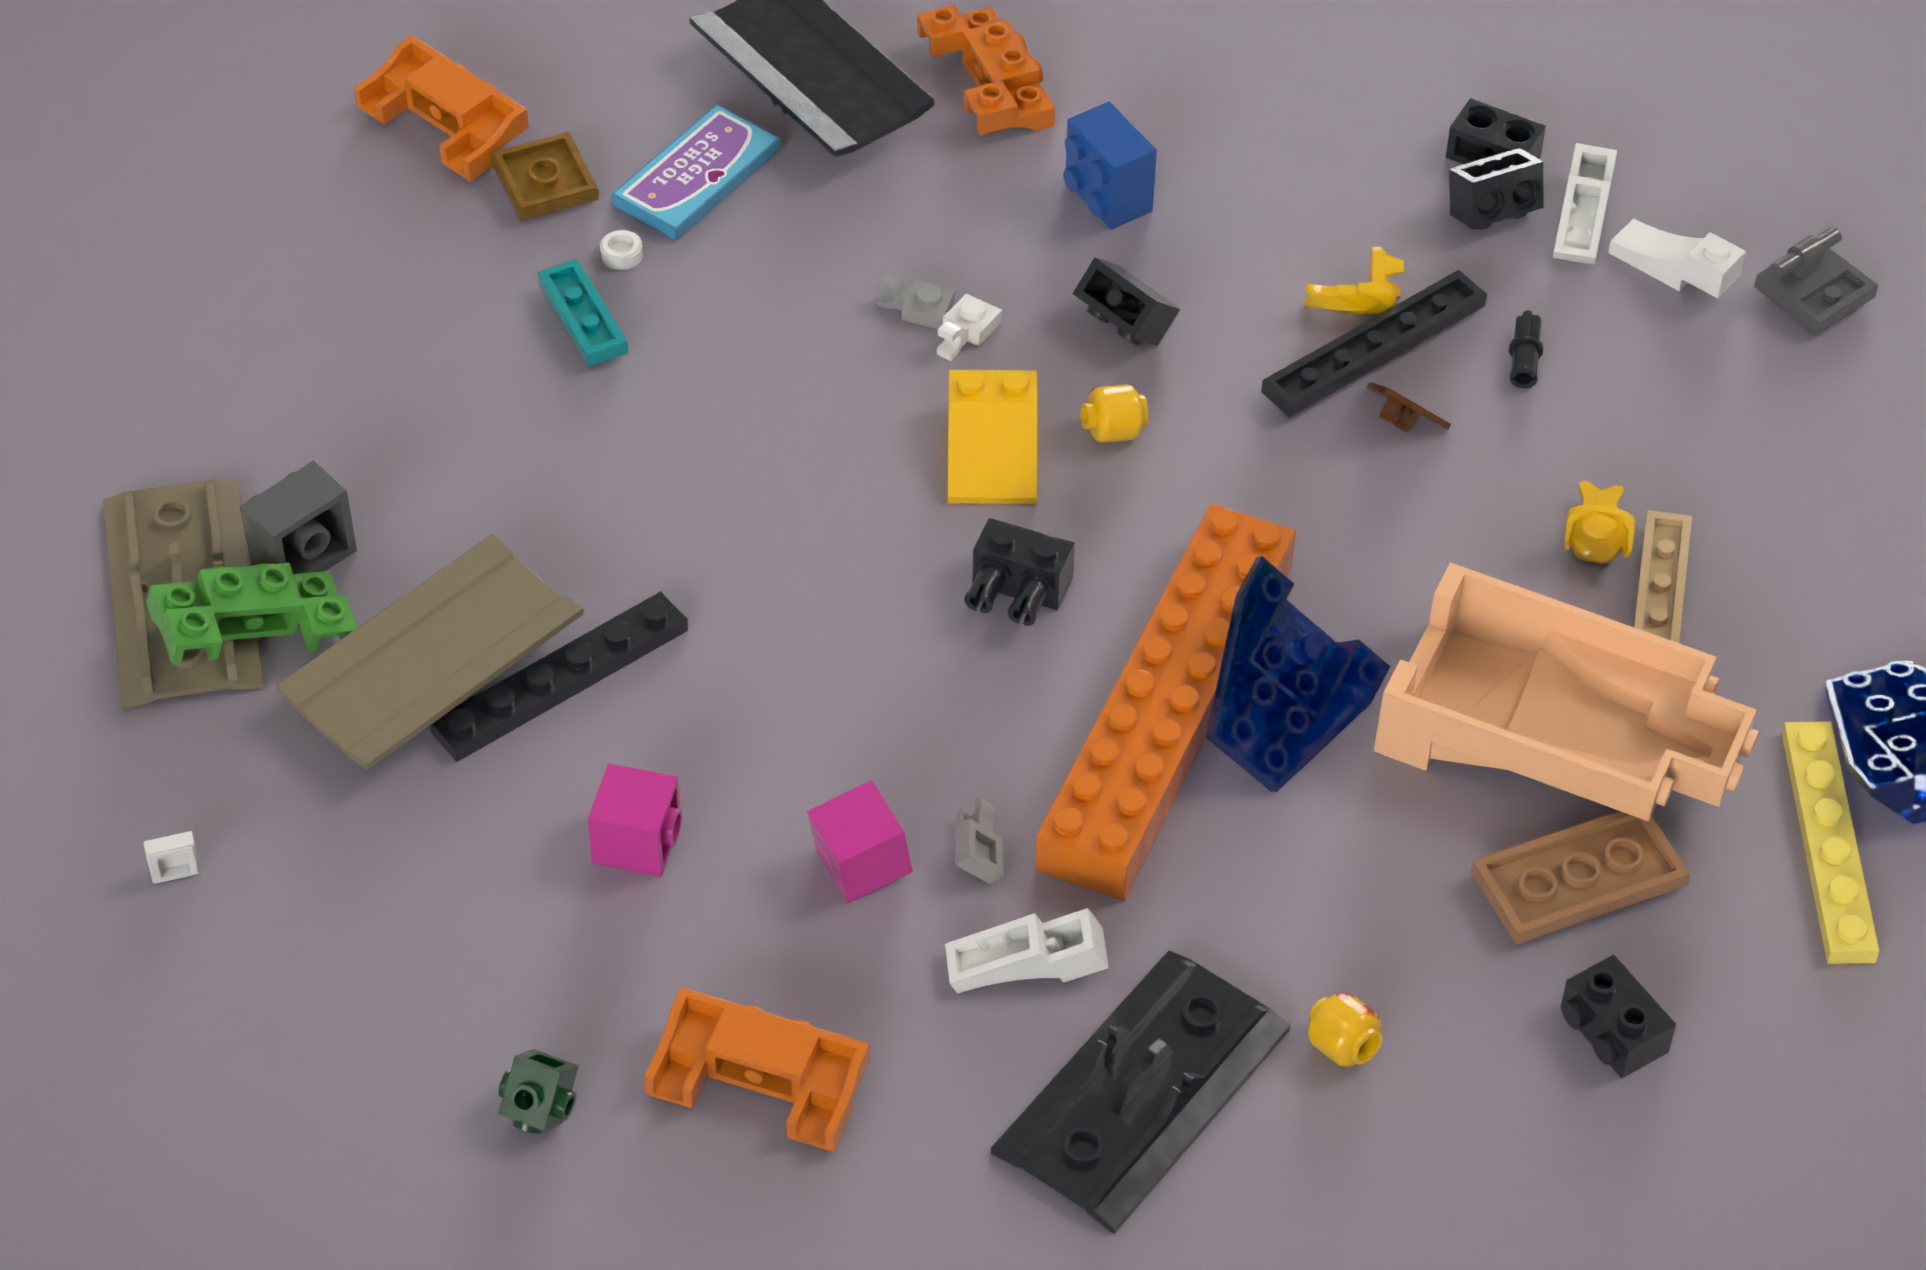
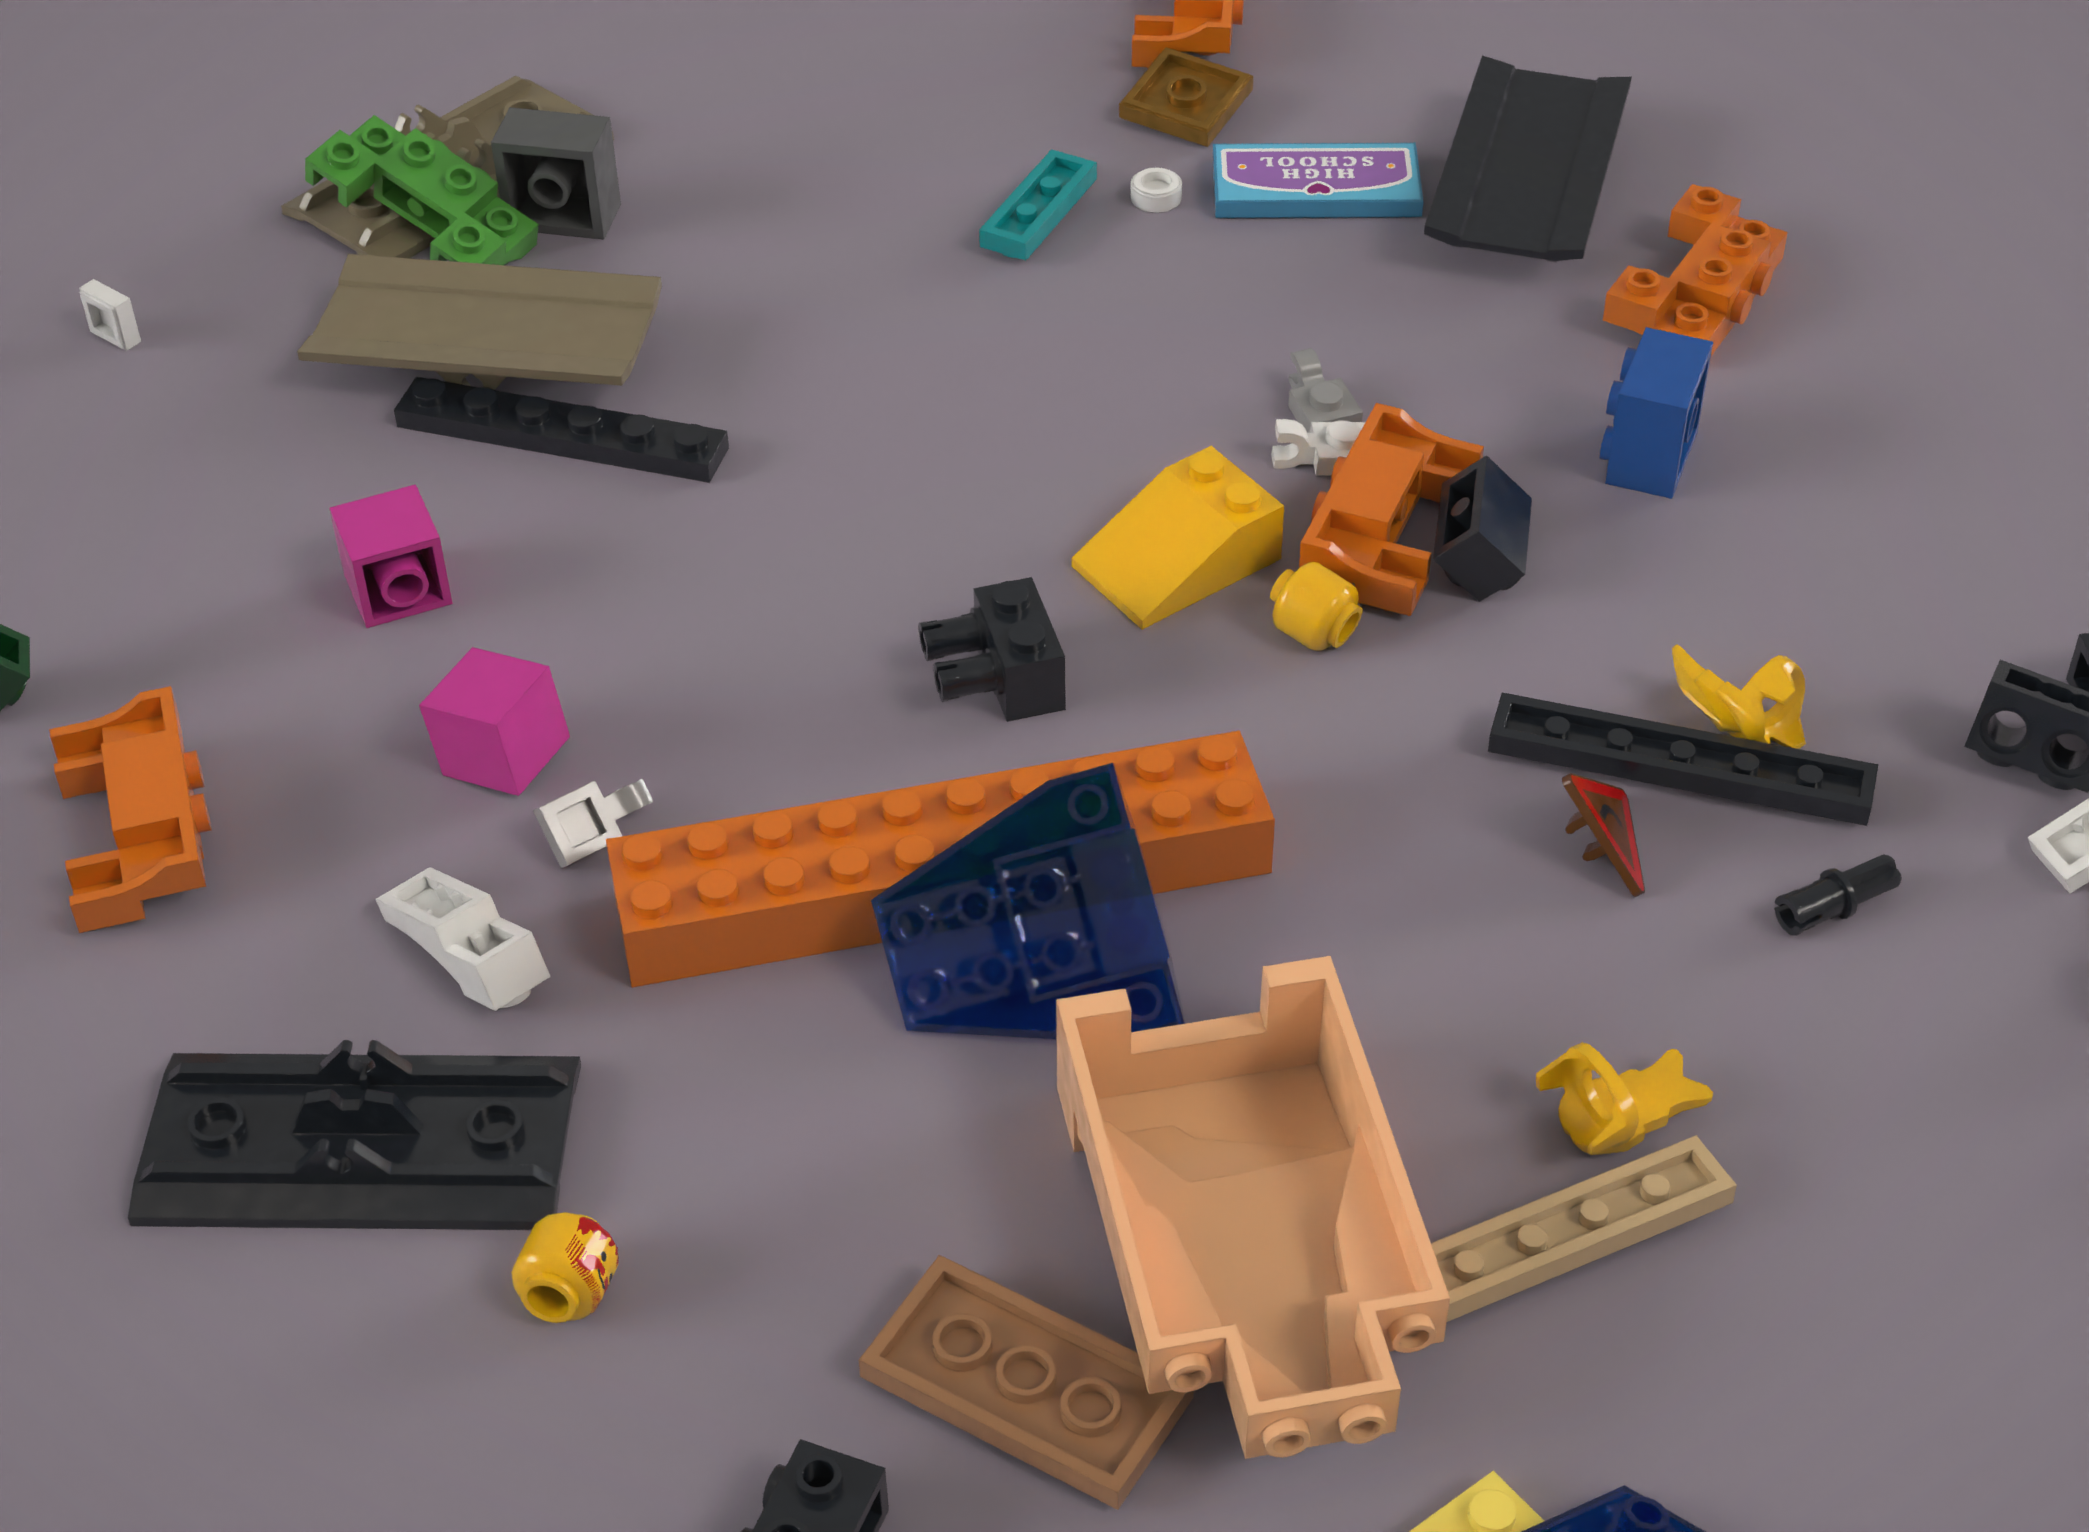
camera: 55 degrees right, 5 degrees down
(1054, 334) = (1371, 502): none -> orange bracket

